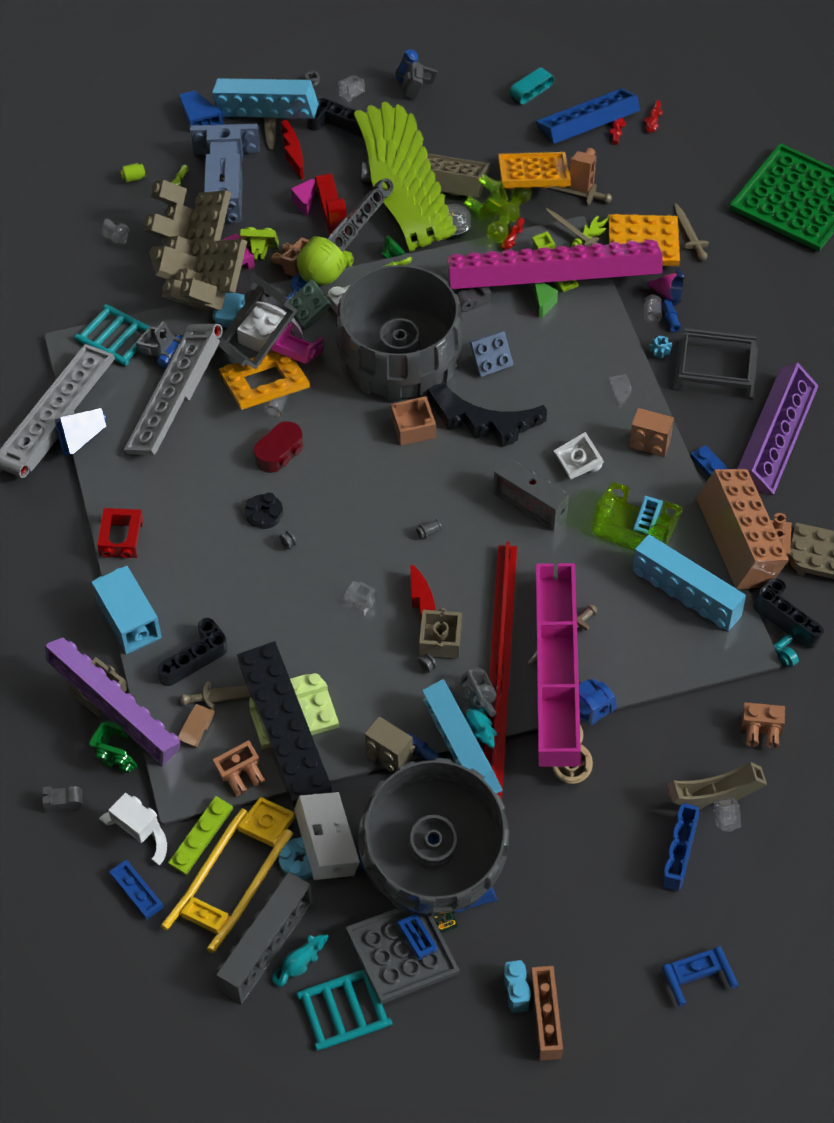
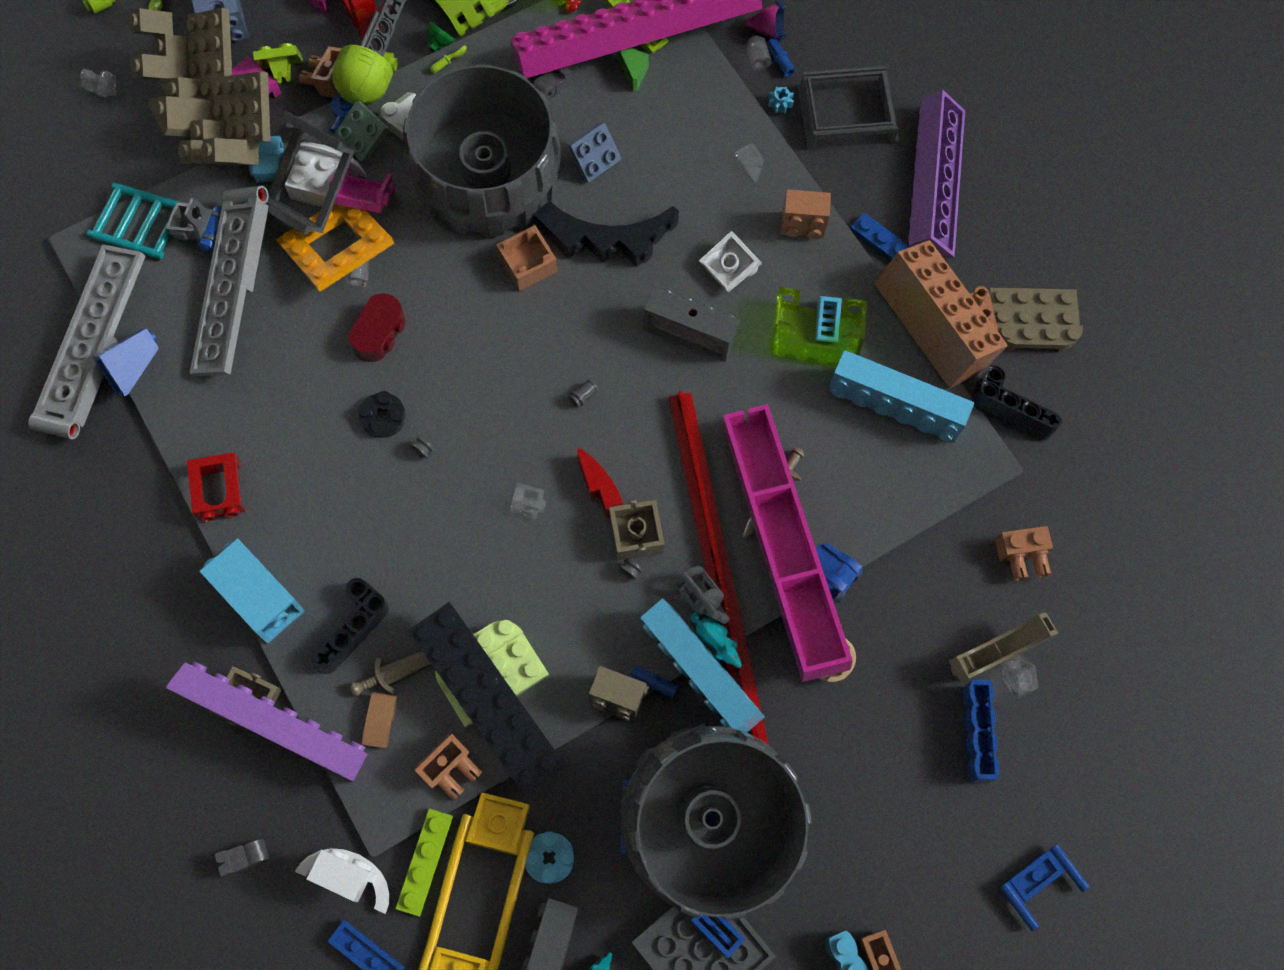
camera: 20 degrees left, 15 degrees up
(110, 755) = (279, 790): green piece -> none
(326, 836) = (575, 827): white brick -> none
(787, 655) = (1027, 458): teal plate -> none

